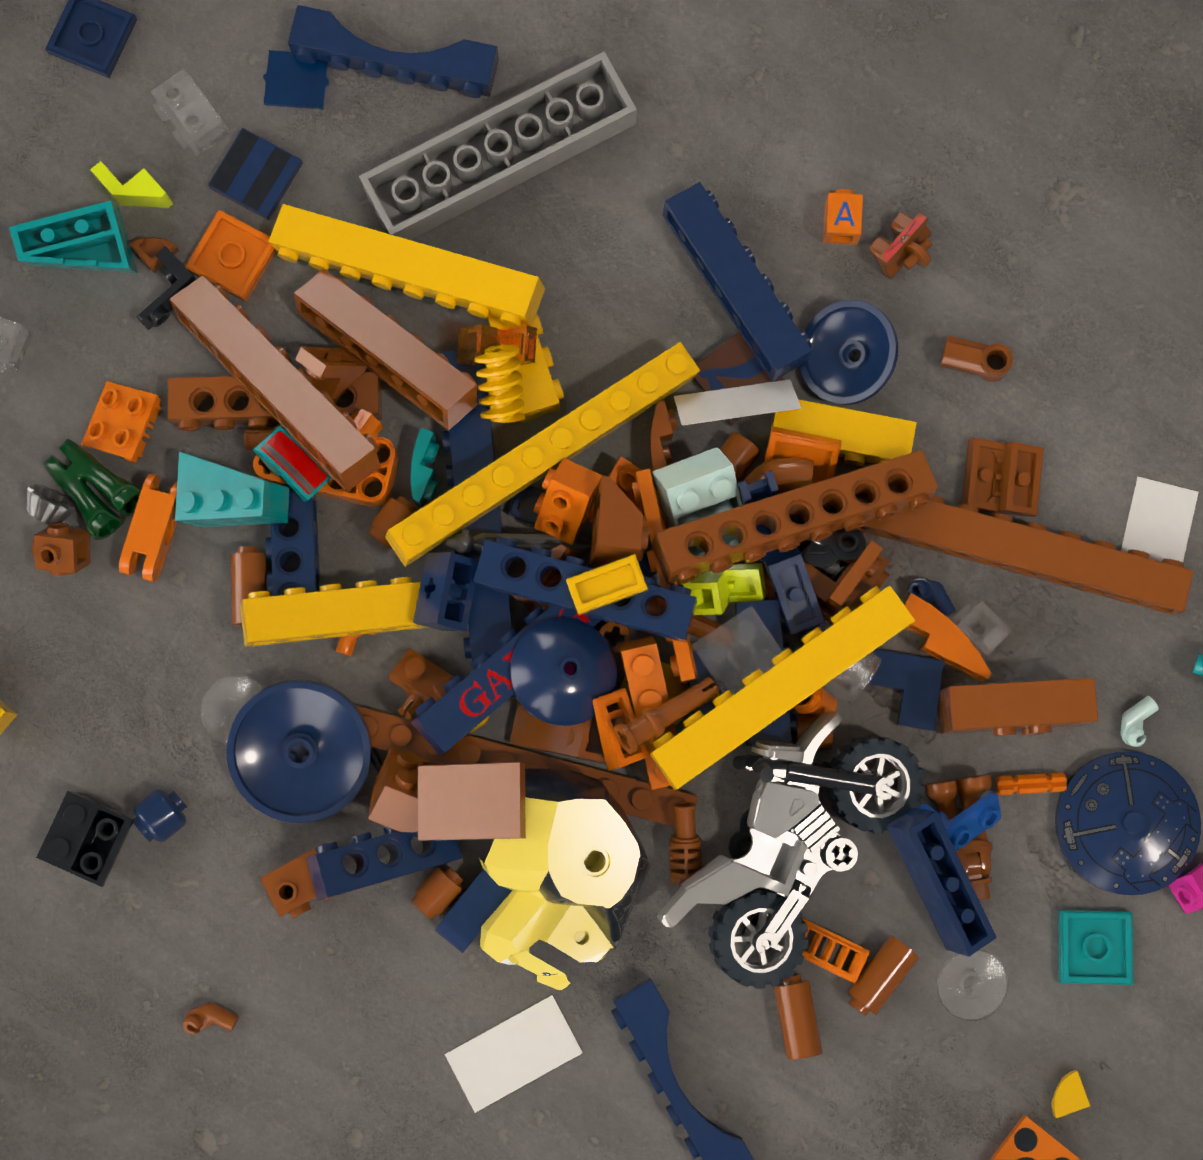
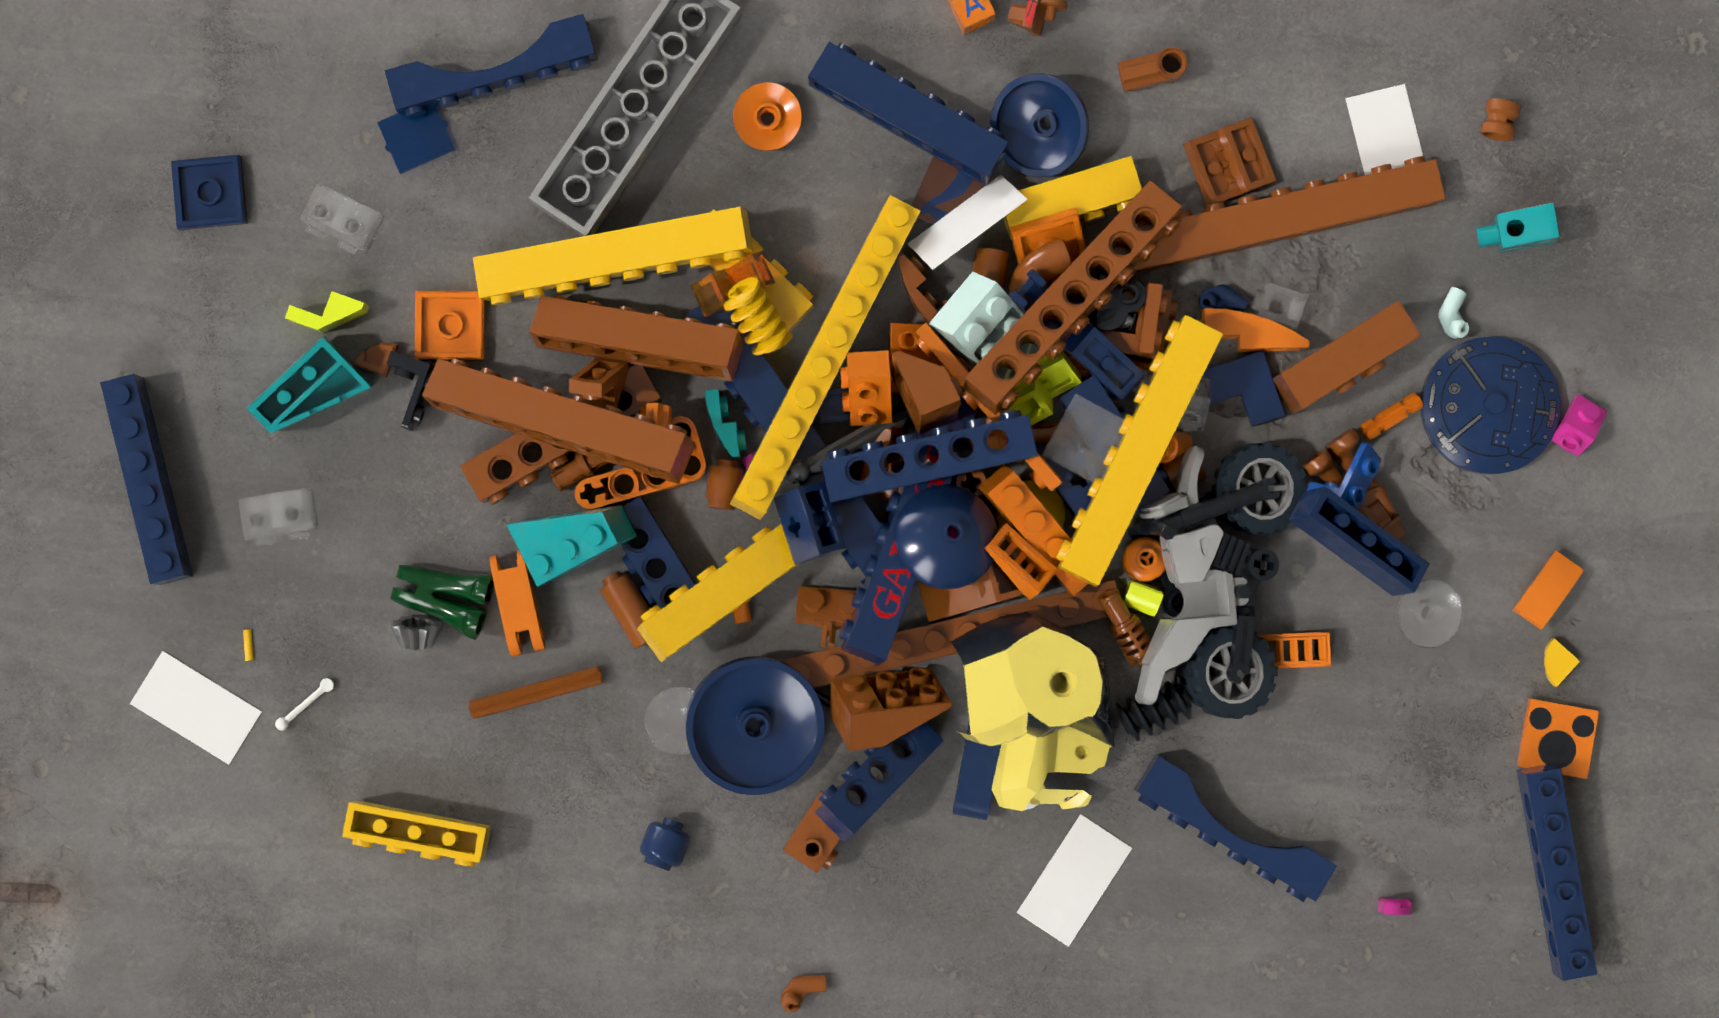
camera: 30 degrees left, 5 degrees up
(61, 549) = (450, 664): dark orange brick -> none
(85, 837) = (614, 897): black slope -> none
(122, 421) = (436, 524): orange hinge -> none
(124, 616) = (535, 692): none -> dark orange axle
(255, 174) = (428, 241): tile -> none
(291, 461) = (613, 482): slope -> none
(438, 891) = (937, 780): dark orange brick -> none
(471, 801) = (932, 689): tile -> none
(606, 584) = (947, 444): yellow tile -> none
(611, 204) = (764, 99): none -> orange dish
(654, 721) = (1047, 539): dark orange pin -> none
(680, 937) = (1166, 706): none -> black piece
(715, 826) = (1143, 597): none -> neon yellow brick
(725, 782) = (1132, 555): none -> orange head
(797, 1018) = (1298, 721): dark orange brick -> none
(882, 976) = (1350, 647): dark orange brick -> none
(1094, 1022) = (1548, 590): none -> orange slope
(1095, 947) = (1516, 526): teal tile -> none

